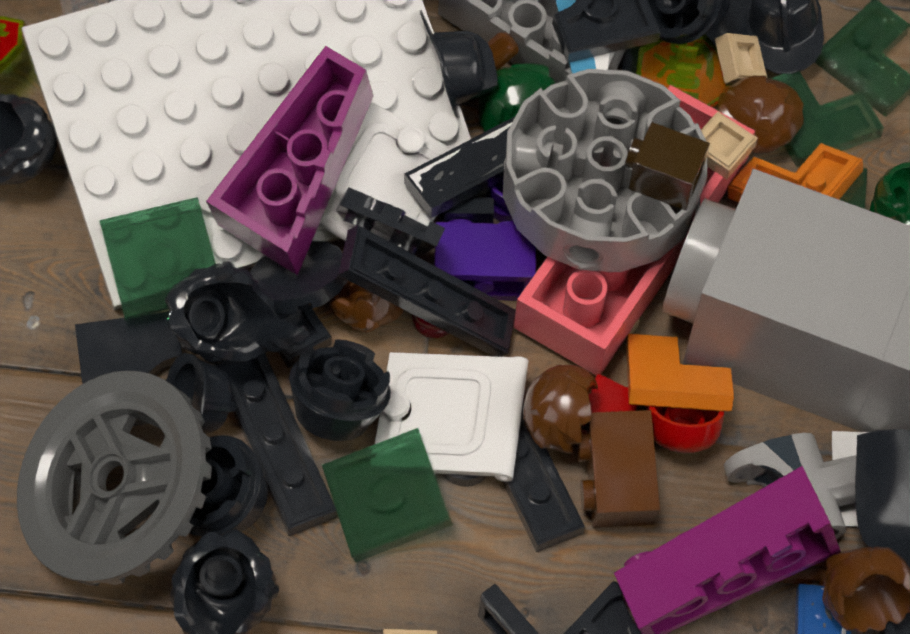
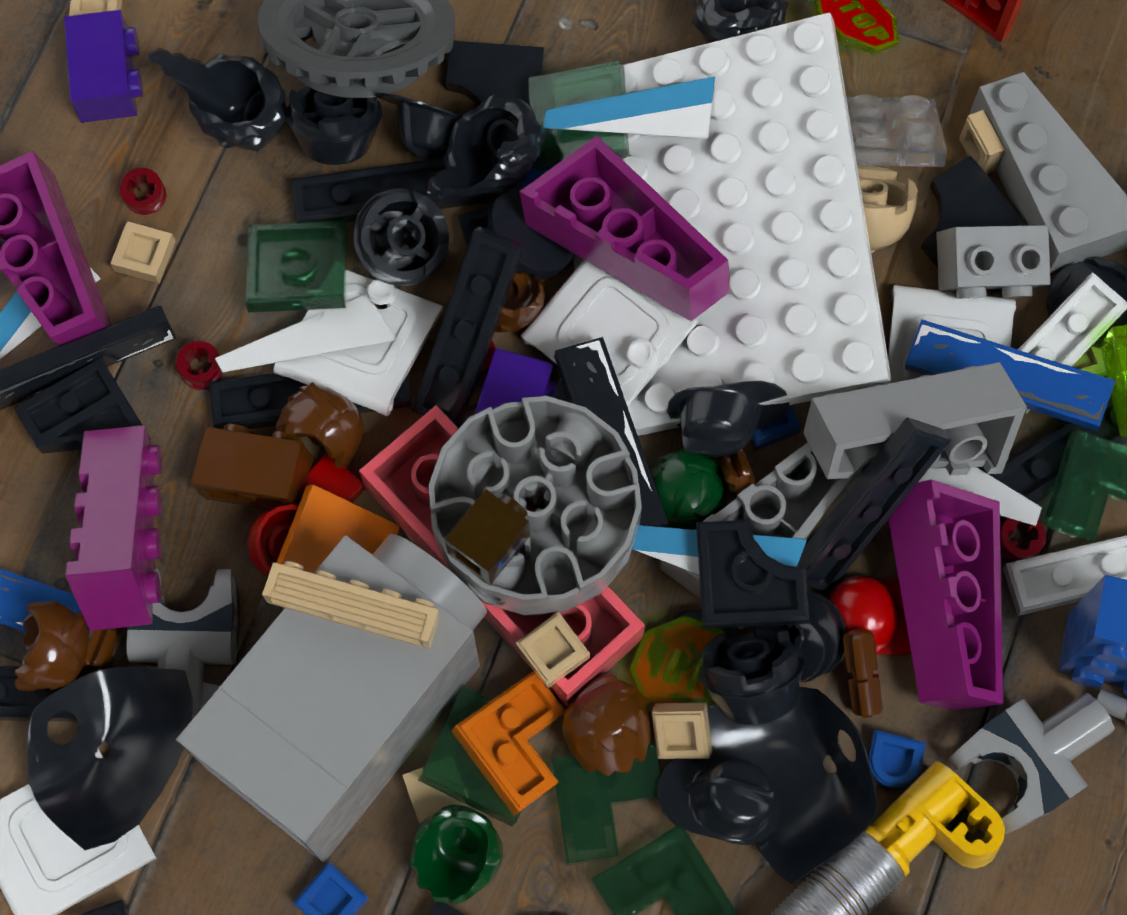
camera: 110 degrees right, 10 degrees up
(152, 171) = (660, 111): none -> sticker
(390, 220) = (547, 309): black wing -> none
(453, 430) = (339, 330): none -> white sticker
(530, 574) = (196, 350): none -> dark red bush
(770, 260) = (352, 604): none -> tan piece

